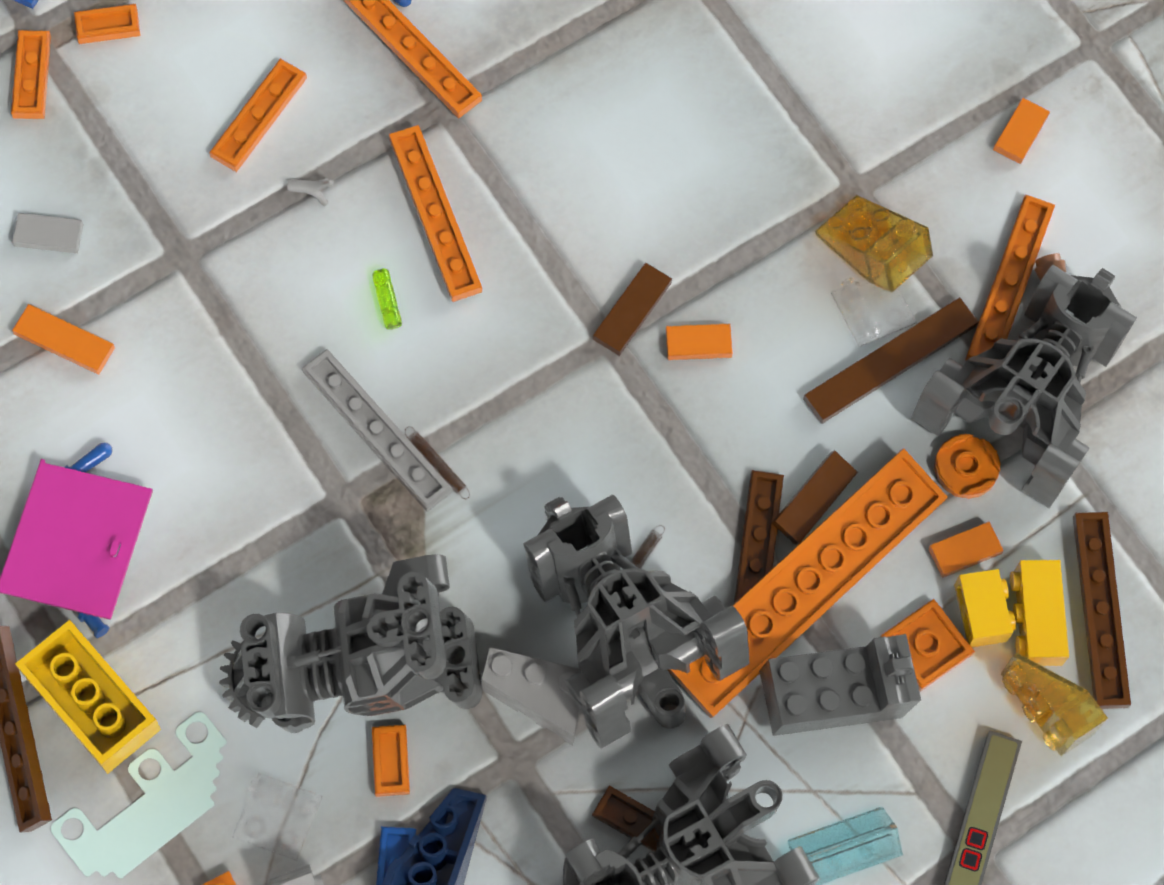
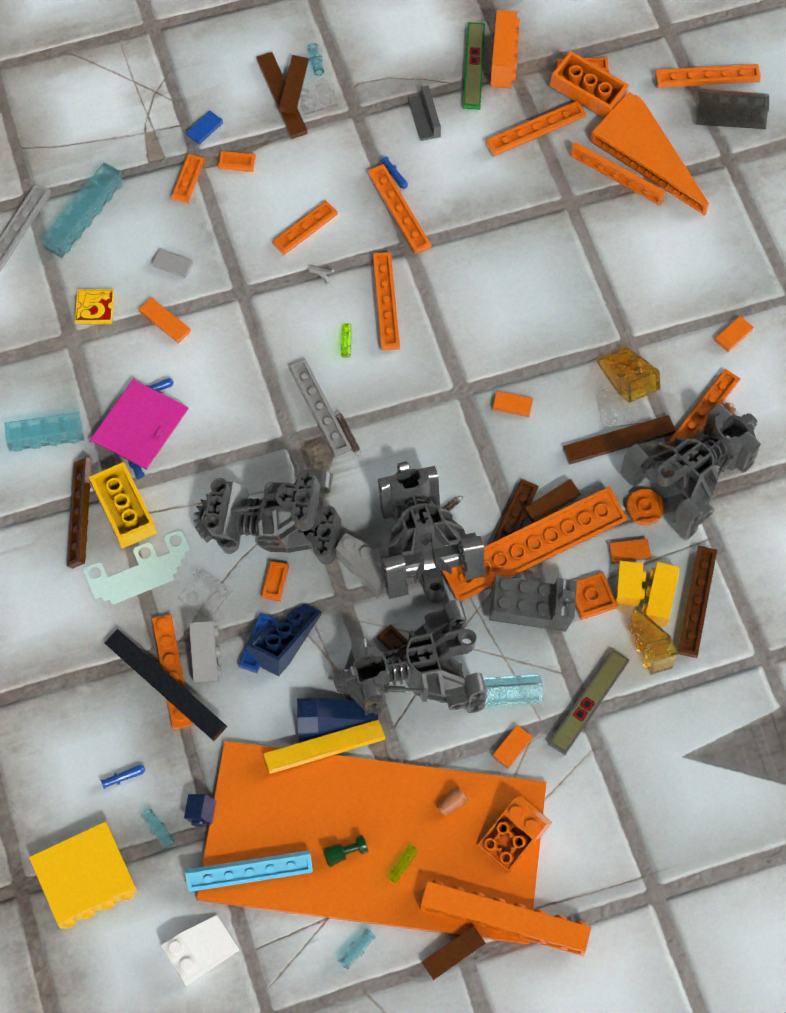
camera: 20 degrees right, 5 degrees down
(632, 309) = (480, 377): reddish brown tile -> none

